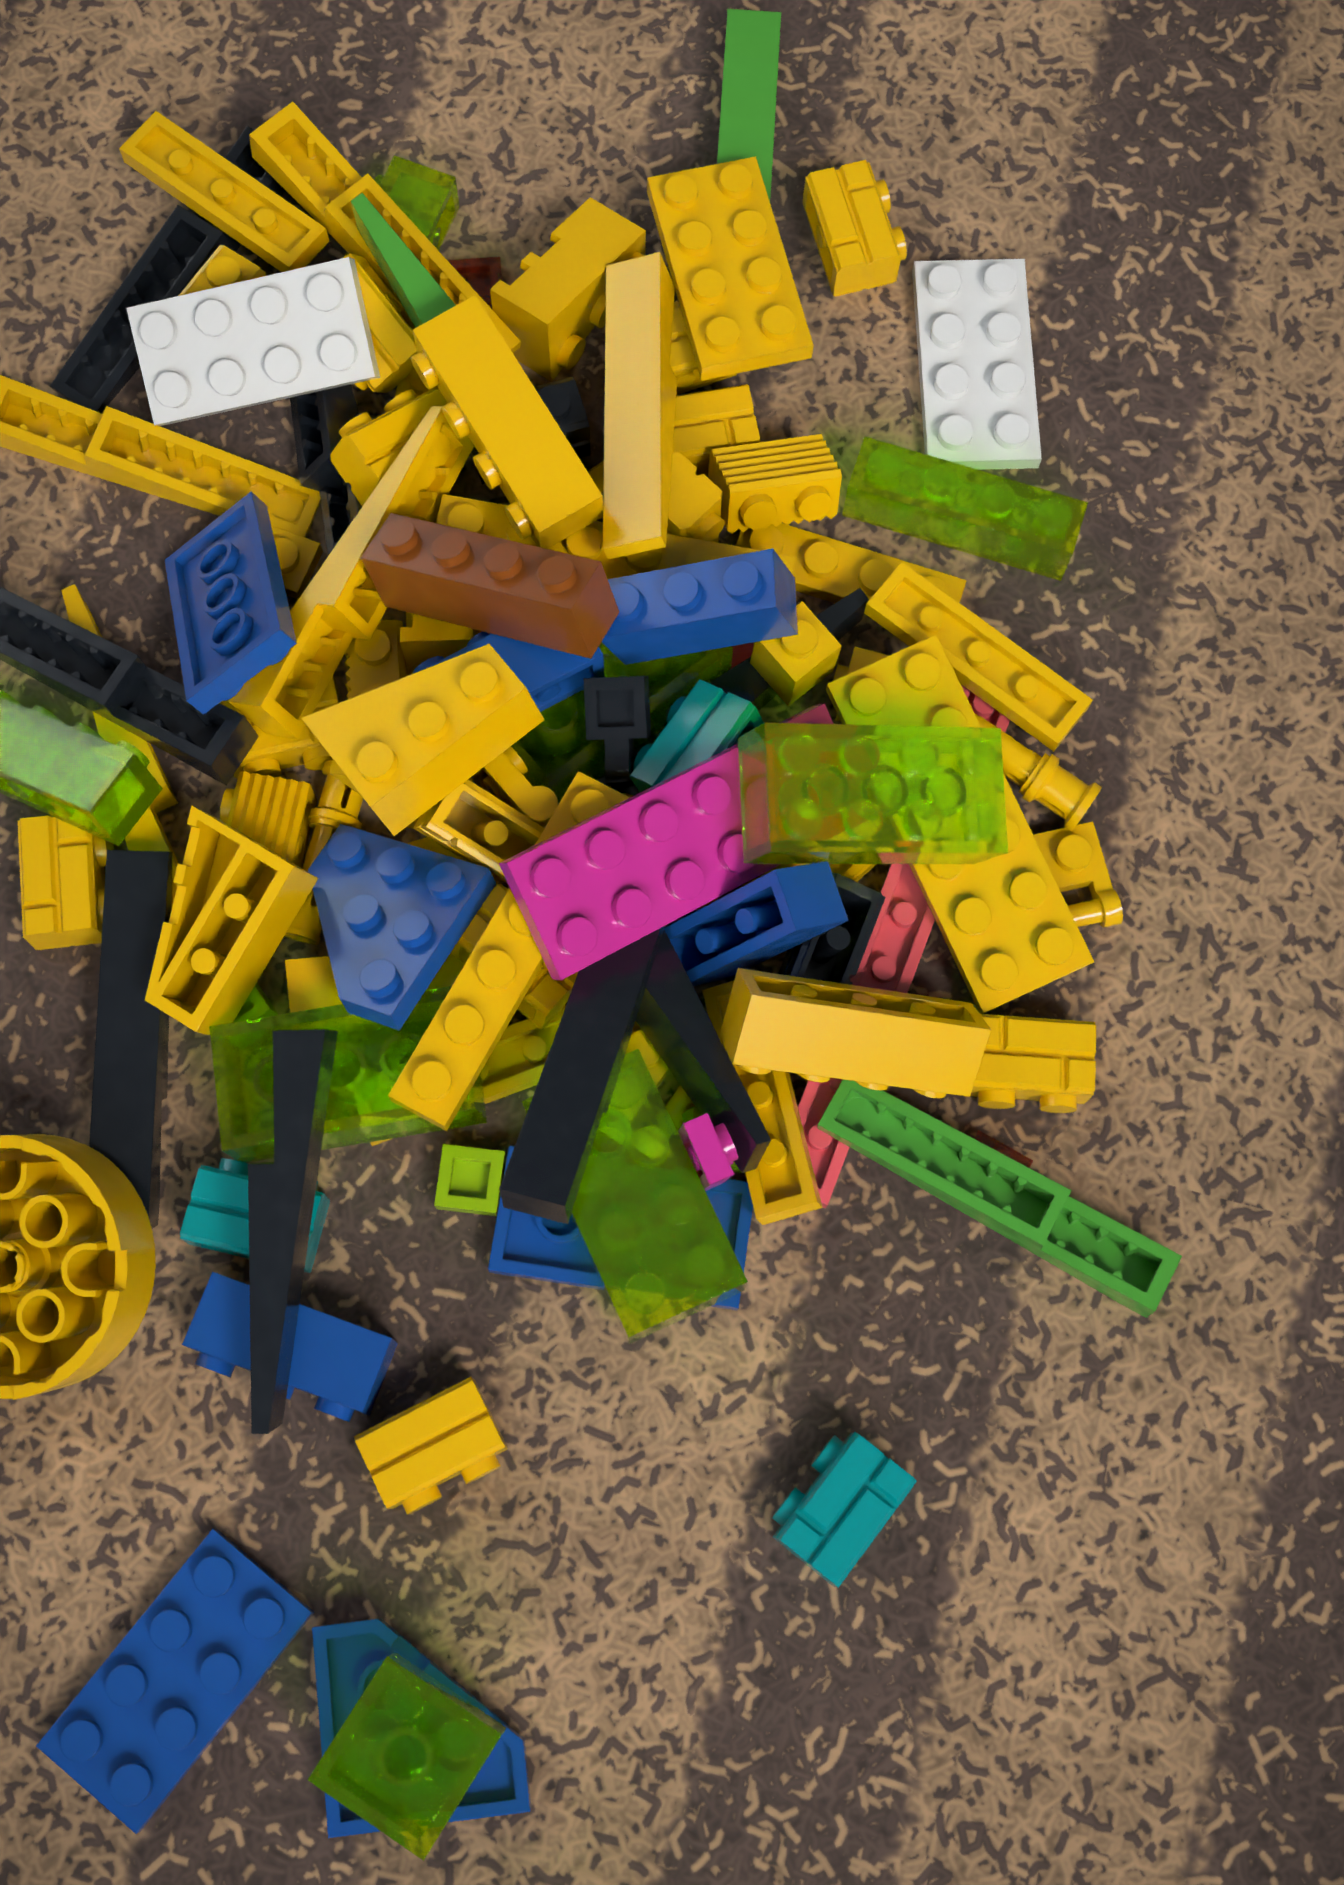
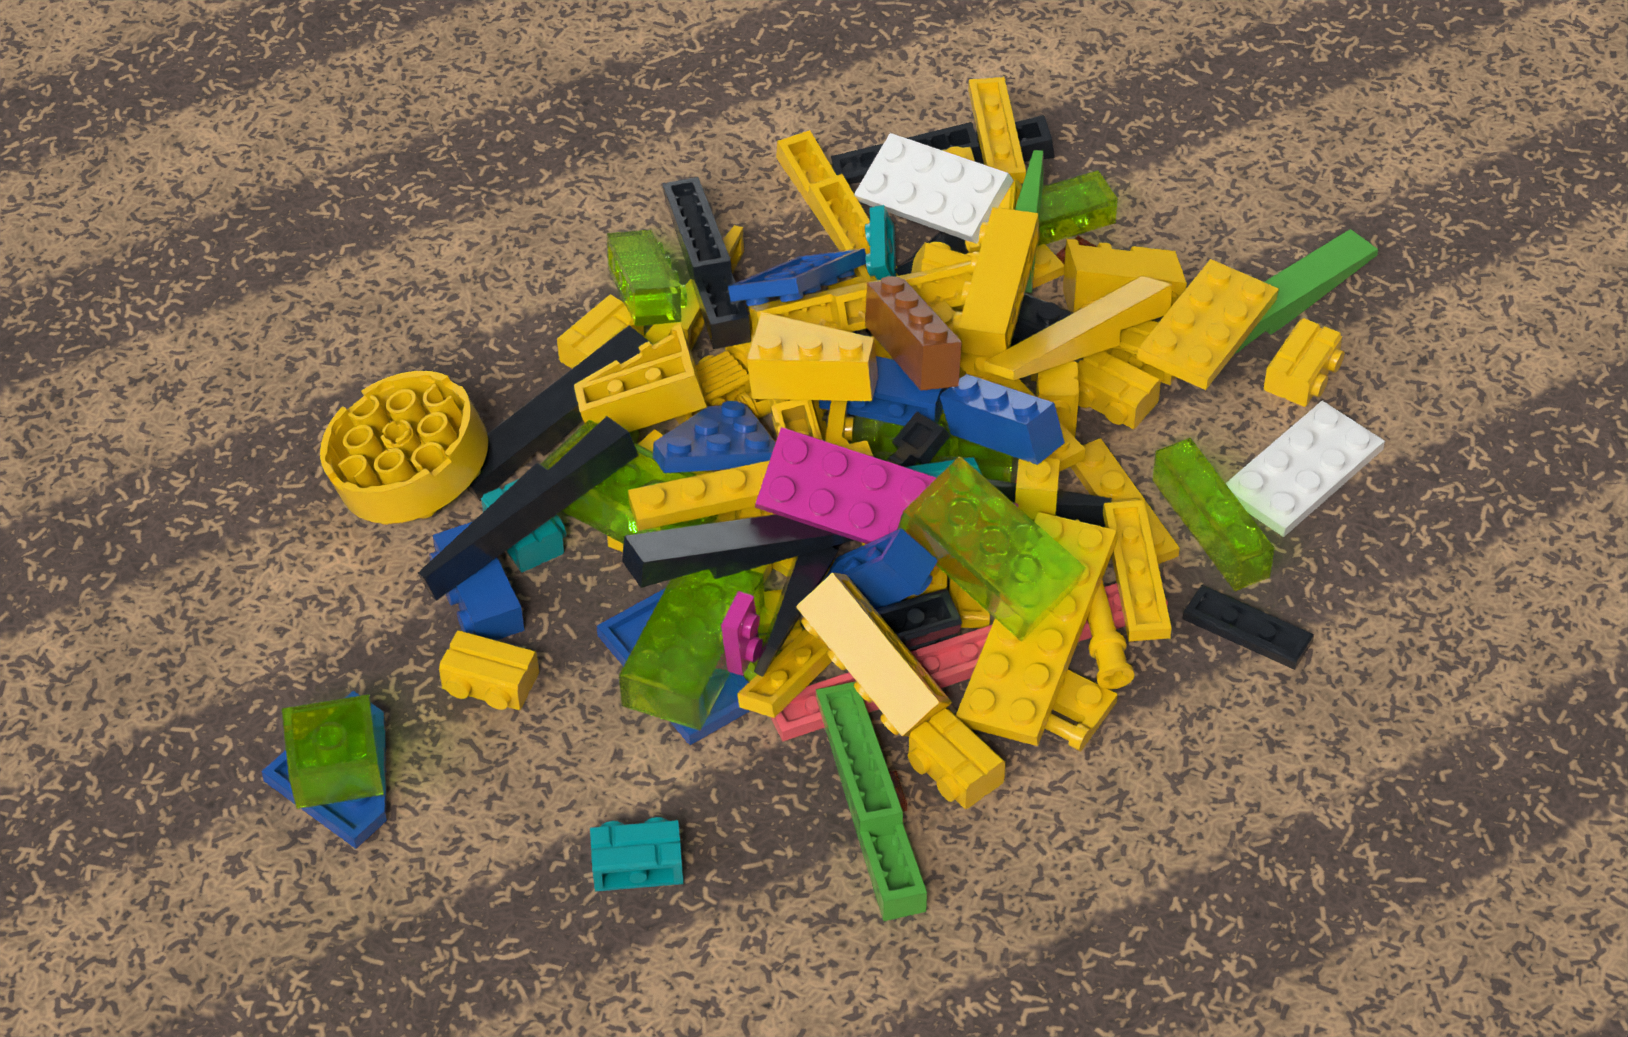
camera: 50 degrees right, 25 degrees down
(175, 1680) = (276, 667): blue plate -> none
(246, 456) = (881, 239): none -> teal plate
(325, 185) = (1048, 135): yellow slope -> none
(470, 1180) = (626, 591): lime plate -> none
(776, 482) = (1124, 428): yellow brick -> none
(1121, 614) = (1248, 627): none -> black tile

